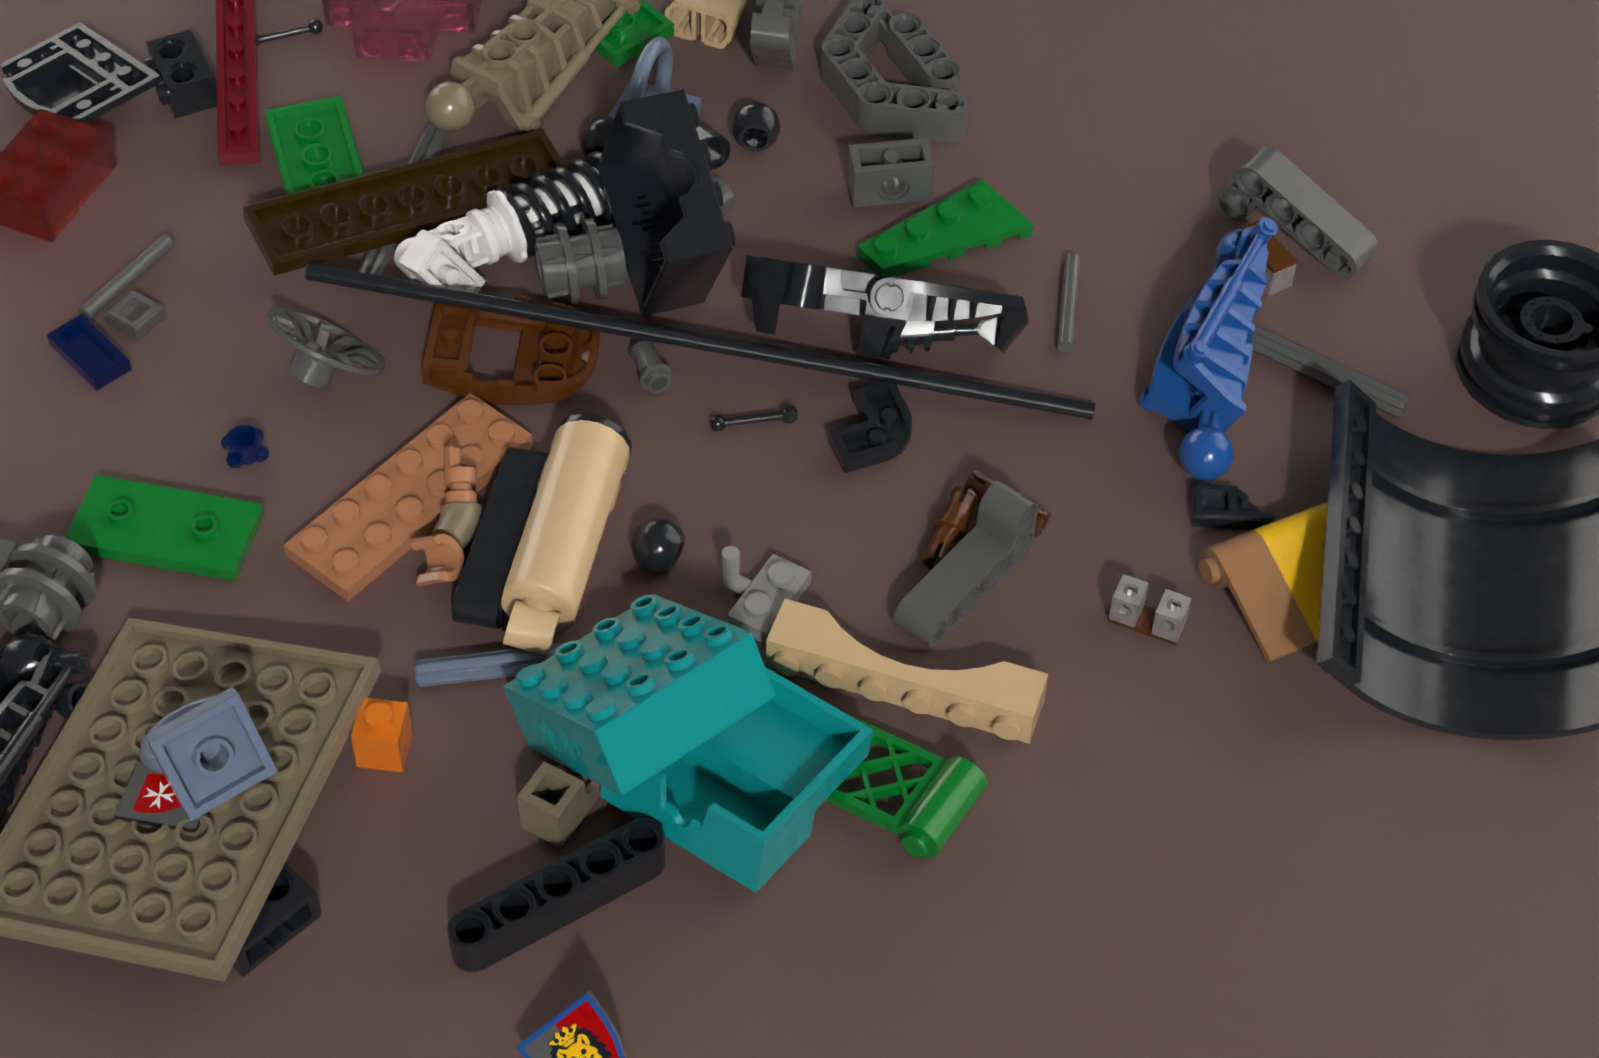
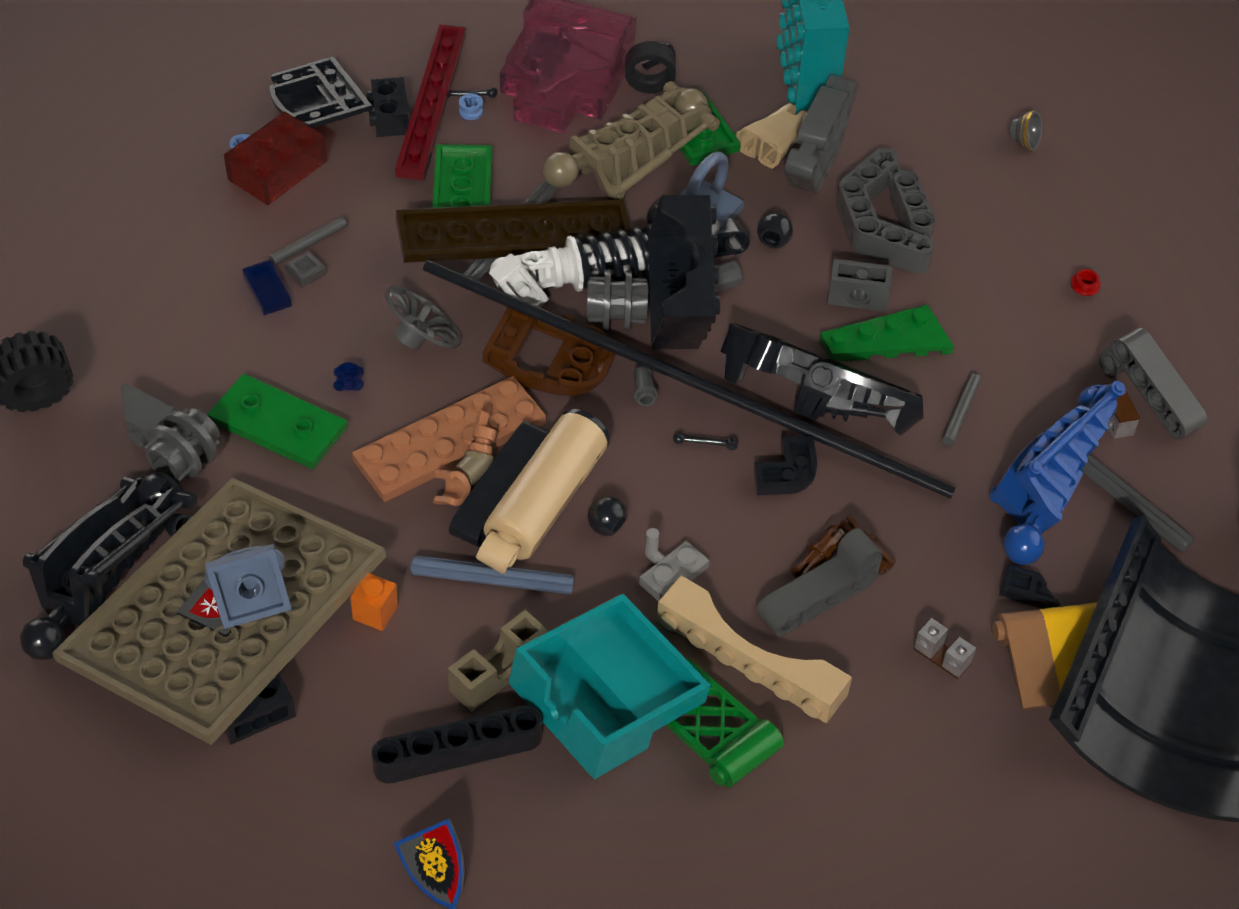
camera: 15 degrees right, 0 degrees up
(293, 51) = (471, 106): none -> medium blue bush
(639, 692) = (554, 616): teal piece -> none
(1171, 107) = (1086, 282): none -> red plate

